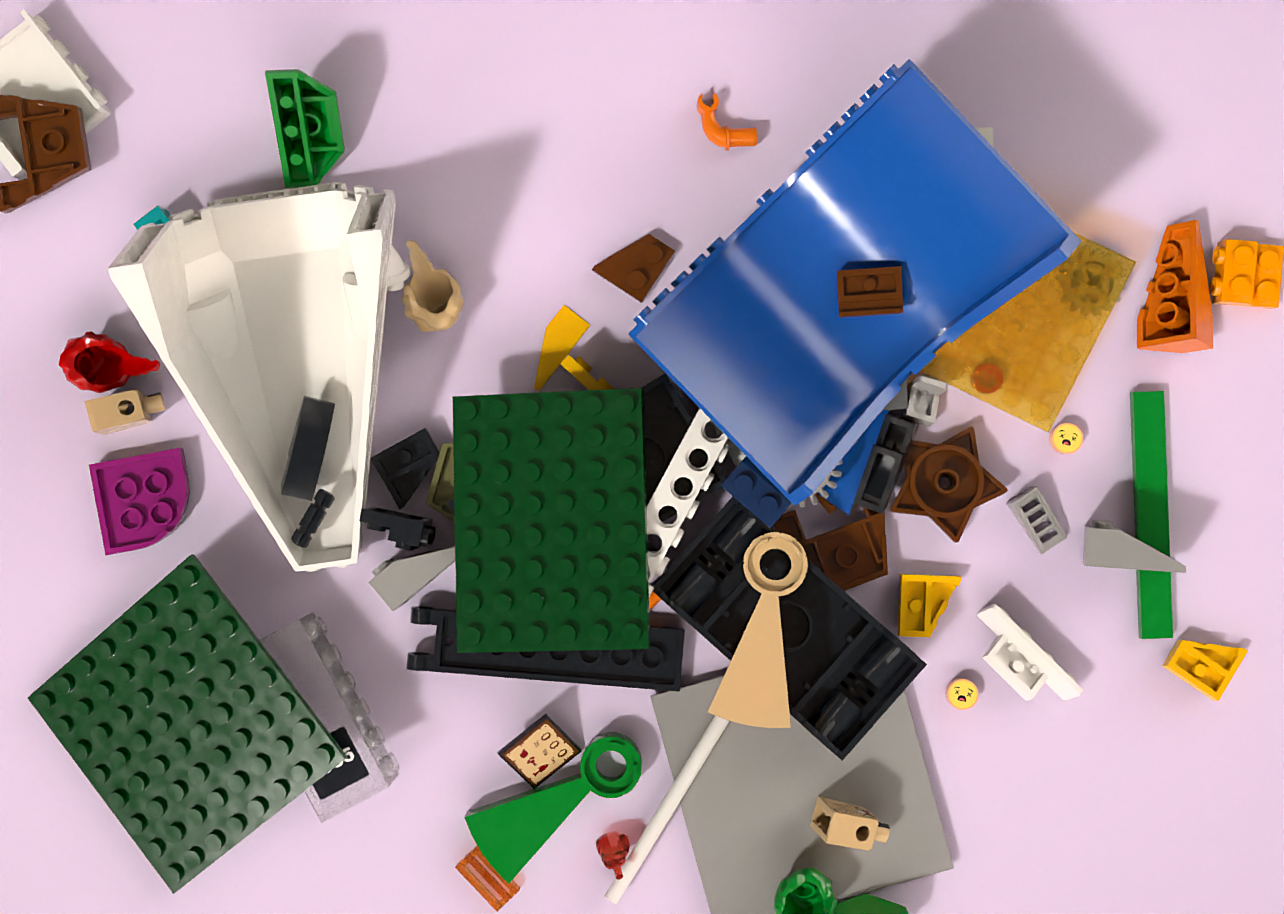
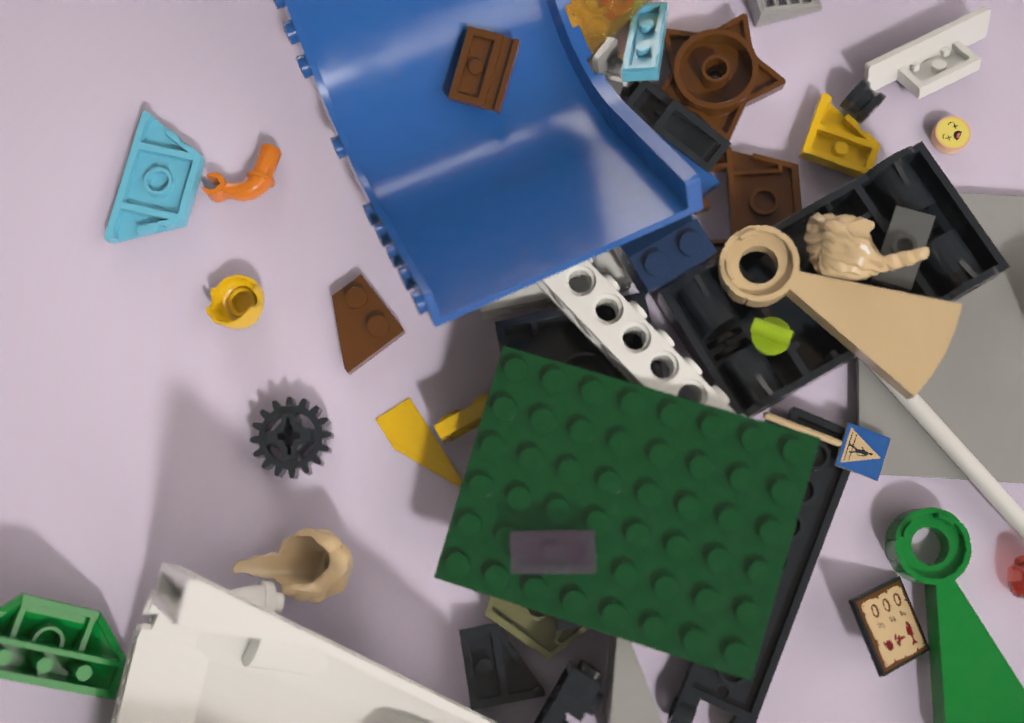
camera: 75 degrees left, 10 degrees down
(498, 478) = (553, 551): none -> clear purple plate
(510, 251) = (276, 438): none -> black gear
(616, 159) = (236, 302): none -> yellow hair
(666, 691) = (859, 449): none -> piece
(694, 53) = (155, 185): none -> medium azure wing
(724, 591) = (770, 335): none -> lime plate
(808, 629) = (845, 251): none -> tan hair
(828, 673) = (906, 232): none -> dark grey plate
(950, 415) = (645, 43): none -> medium azure tile
(964, 612) = (863, 101): none -> black wheel

